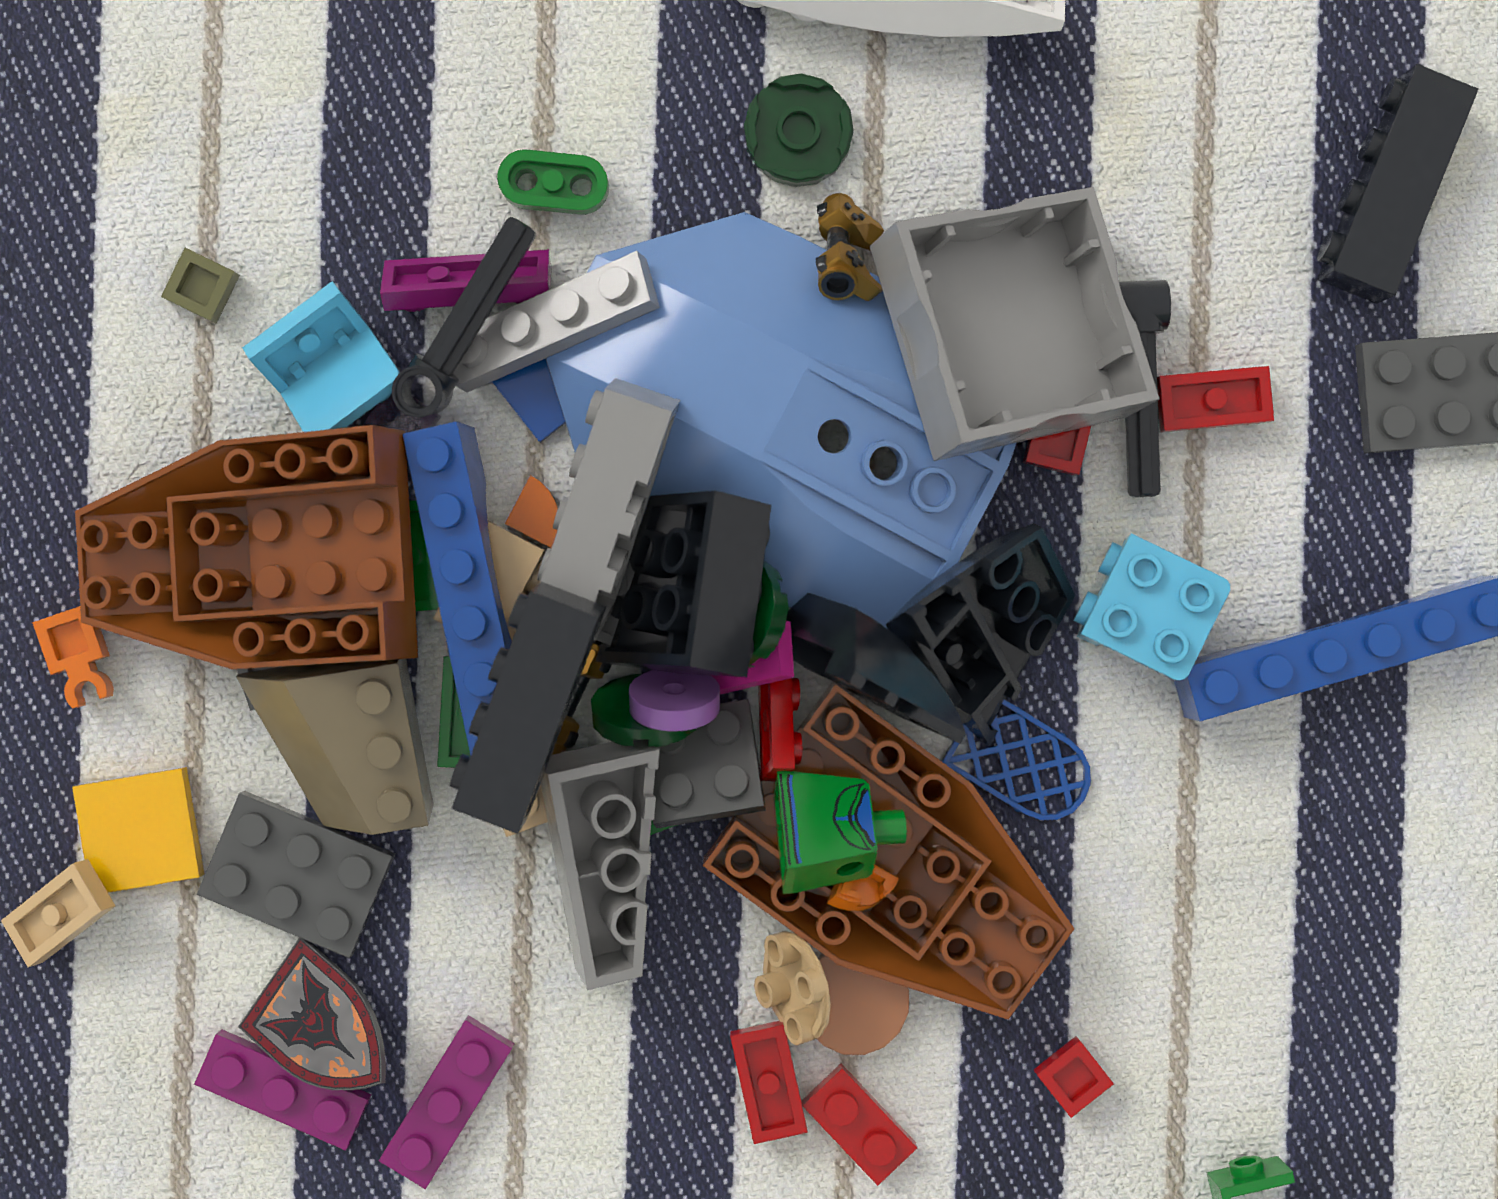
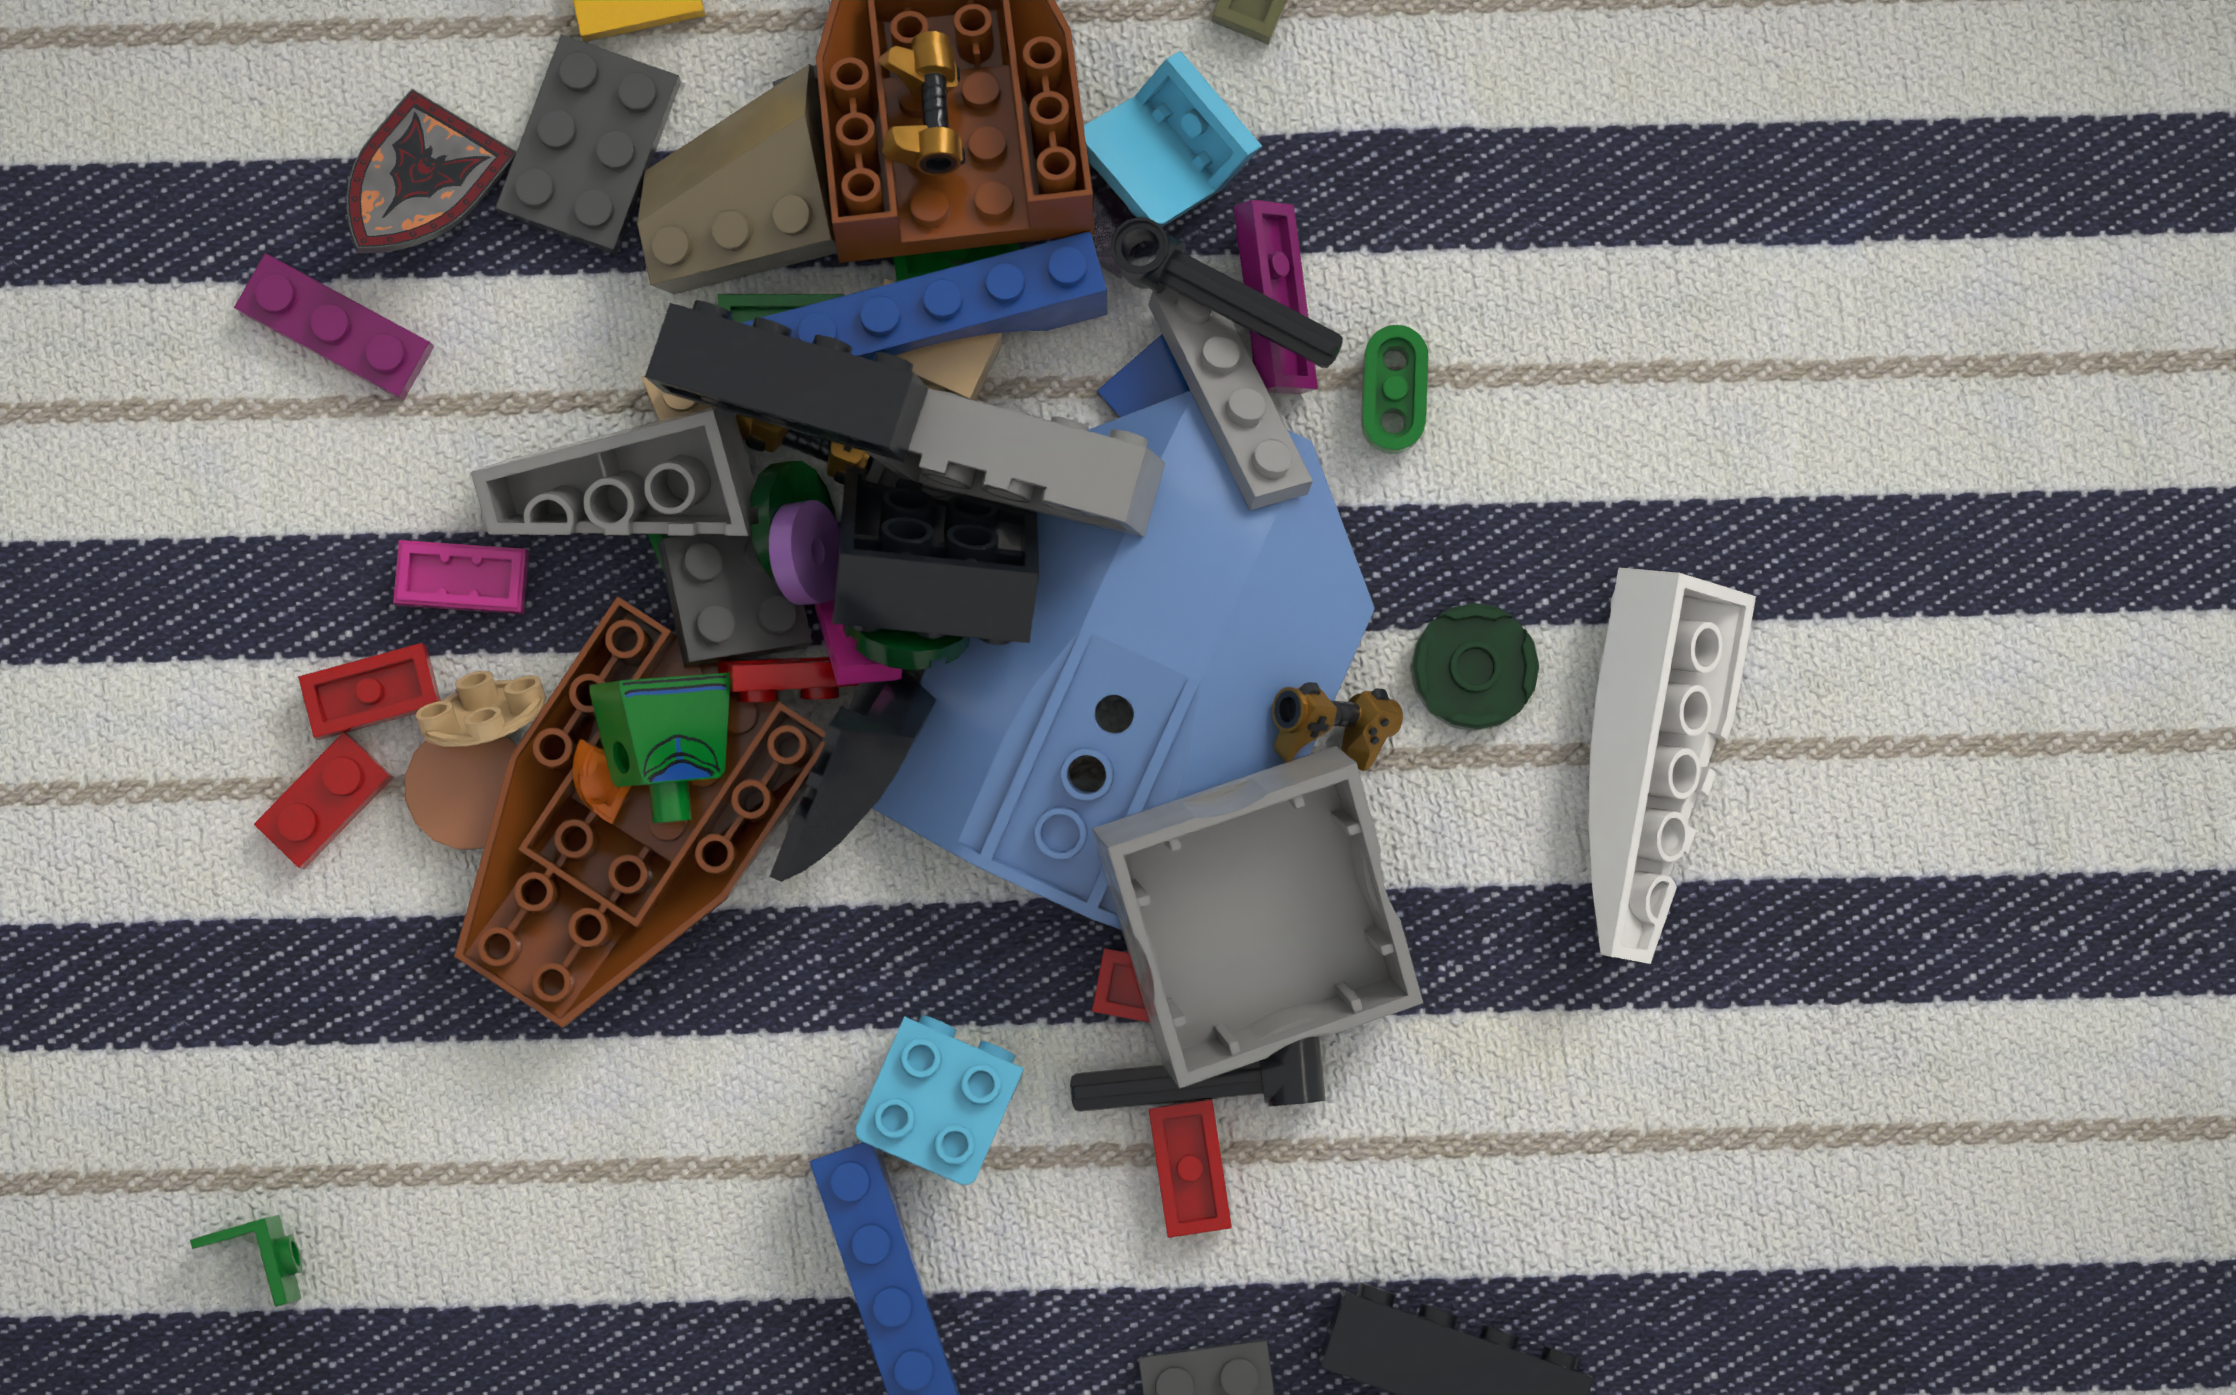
camera: 90 degrees right, 5 degrees down
(253, 568) = (929, 75): none -> pearl gold piece
(254, 1080) = (352, 109): magenta plate -> none
(535, 512) = (1017, 386): orange tile -> none
(673, 999) = (461, 577): none -> dark pink plate
(986, 621) = (910, 907): black wedge -> none
(1039, 794) = (708, 961): blue window -> none
(1073, 1076) = (388, 1046): red plate -> none

